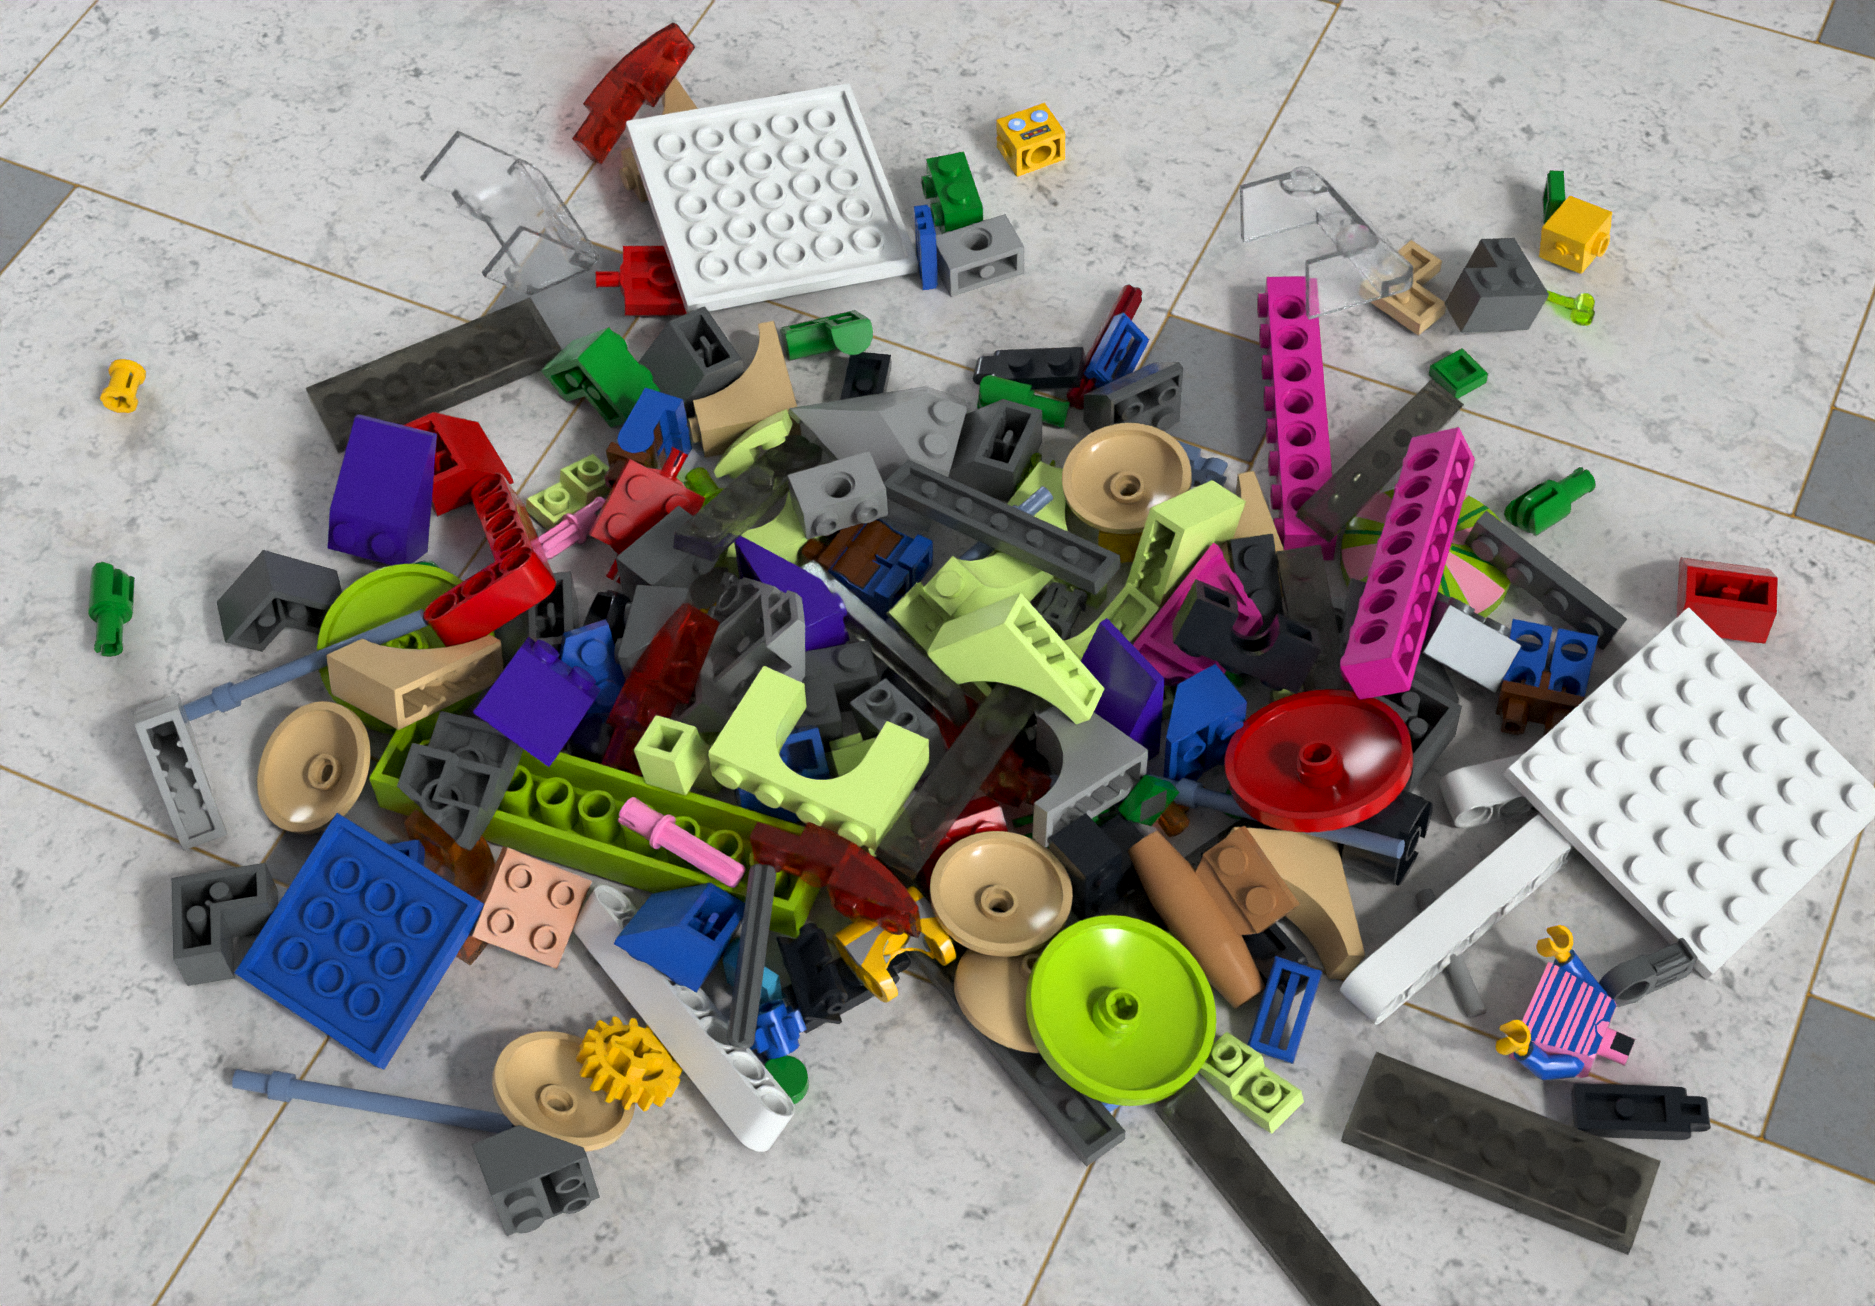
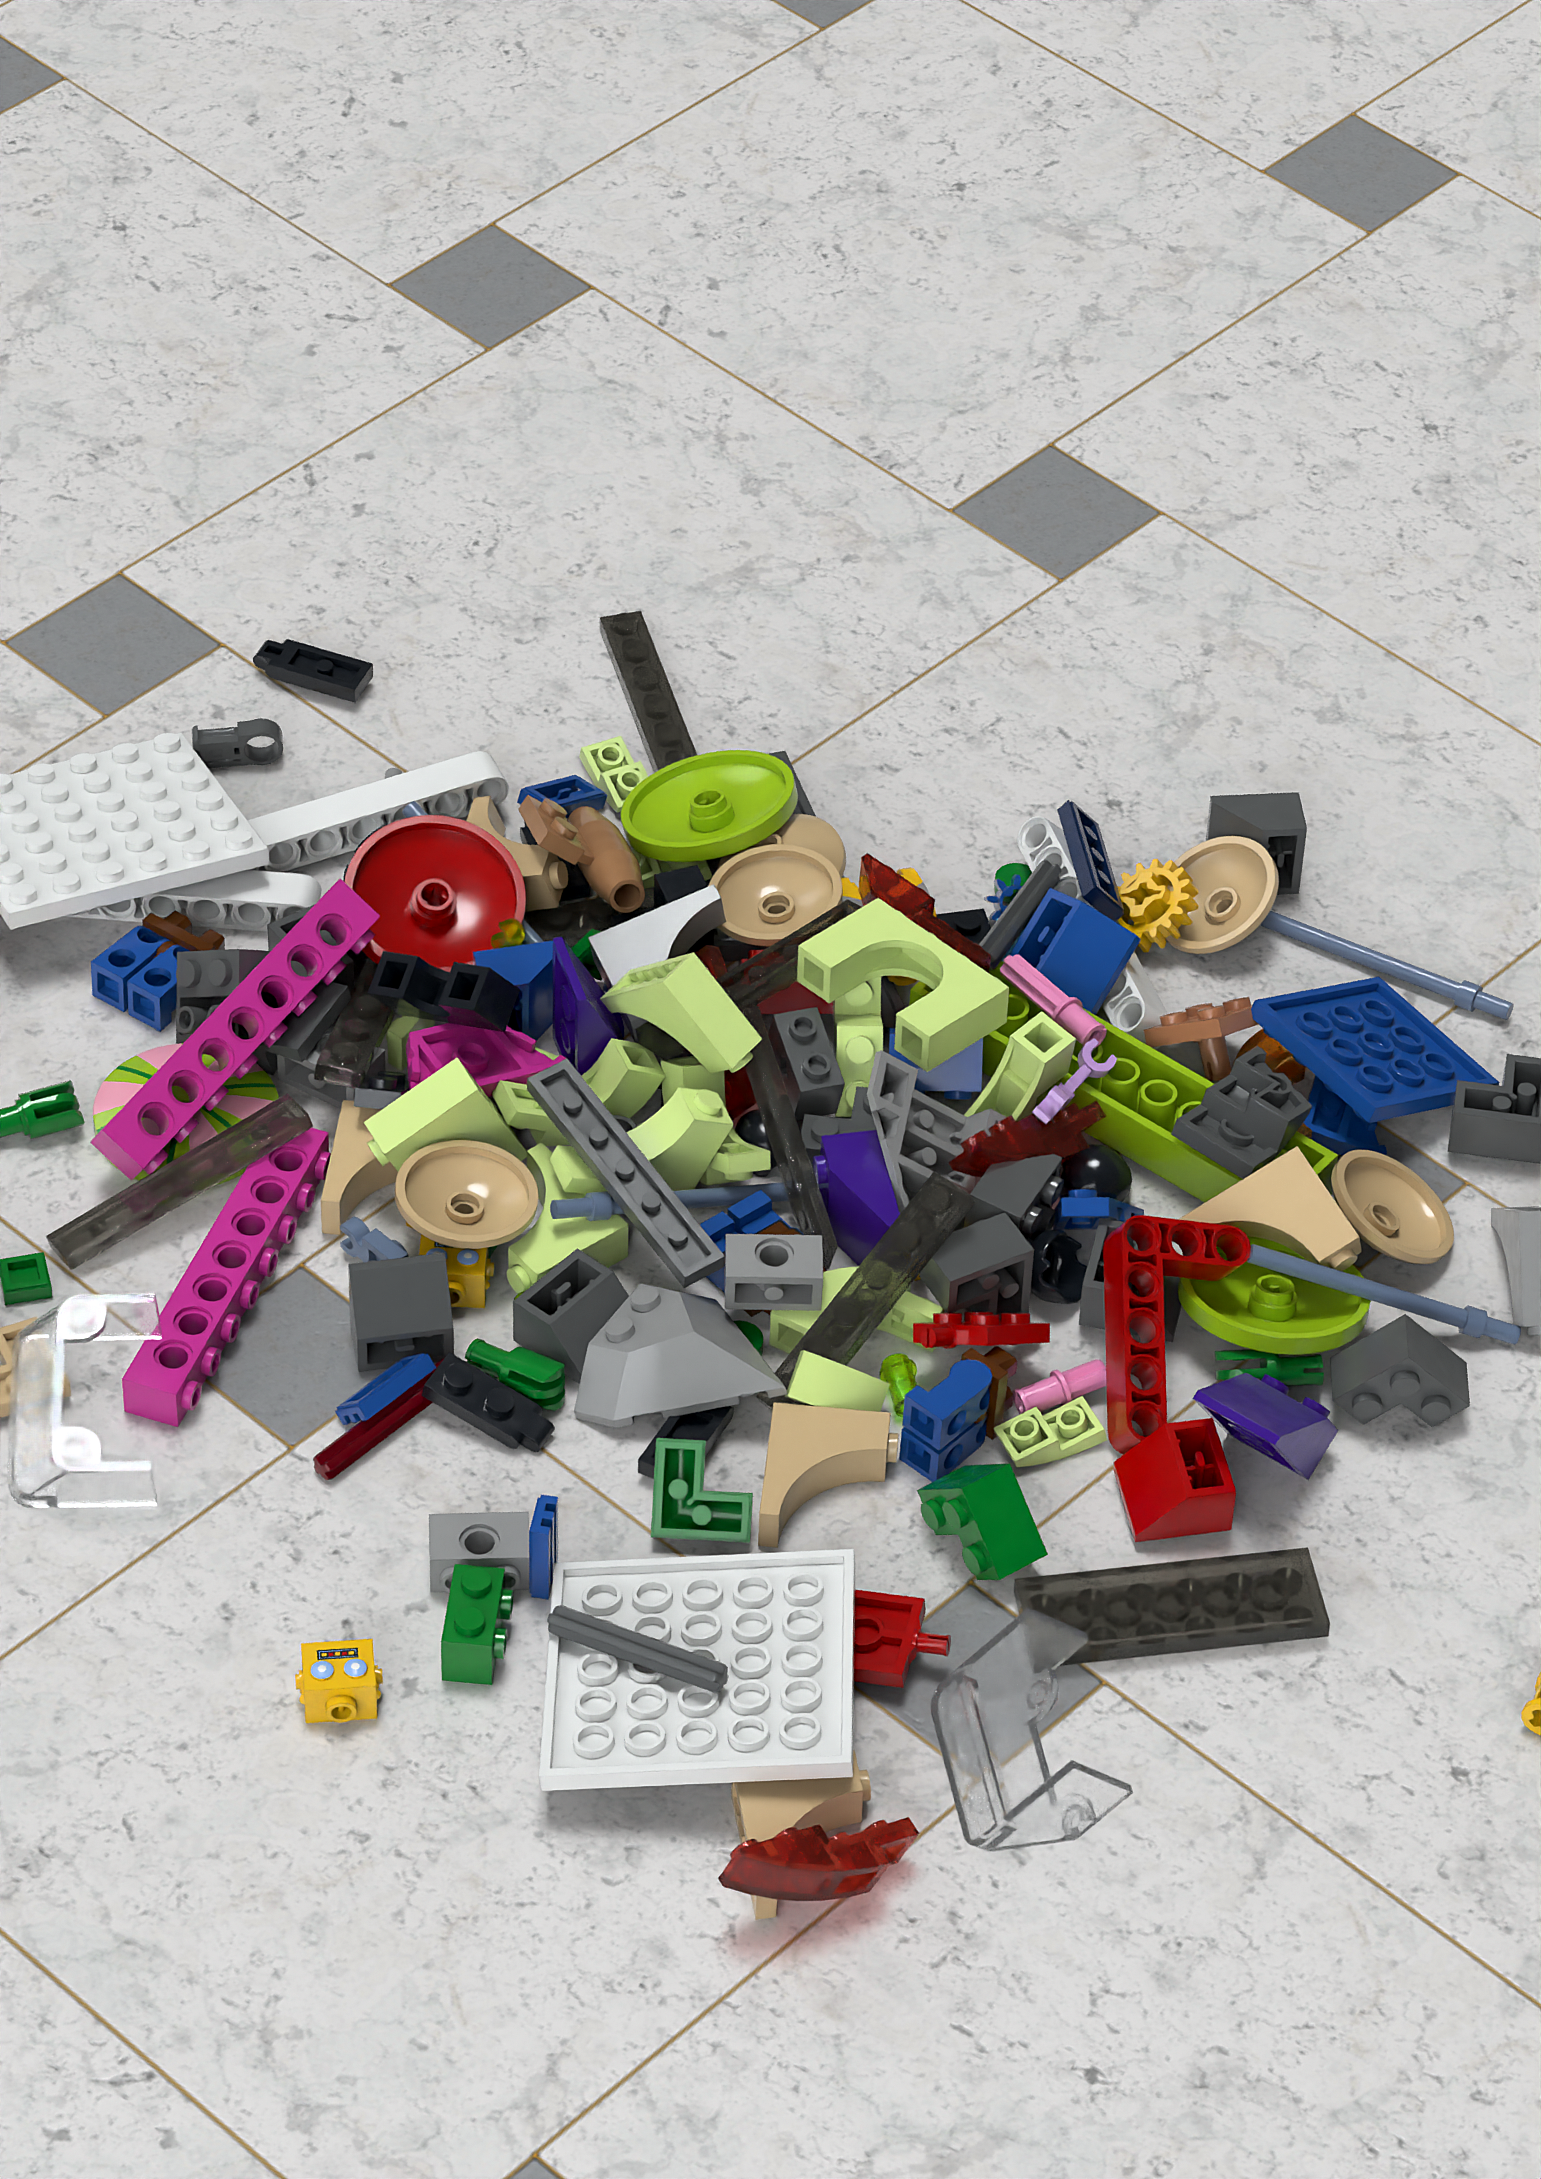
camera: 165 degrees left, 10 degrees down
(538, 700) = (1158, 1143): dark purple slope -> none
(641, 704) = (1062, 1094): none -> lavender piece
(692, 358) = (870, 1506): dark grey slope -> none
(707, 1092) = (1090, 861): none -> dark blue tile
(817, 989) = (968, 900): black hinge -> none
(818, 179) = (638, 1648): none -> dark grey axle
(1225, 739) = (513, 934): none -> clear neon green hand
(1502, 1152) = (445, 676): clear smoke plate -> none
(1544, 579) = (102, 1027): dark grey plate -> none
(1565, 1018) = (338, 727): torso -> none

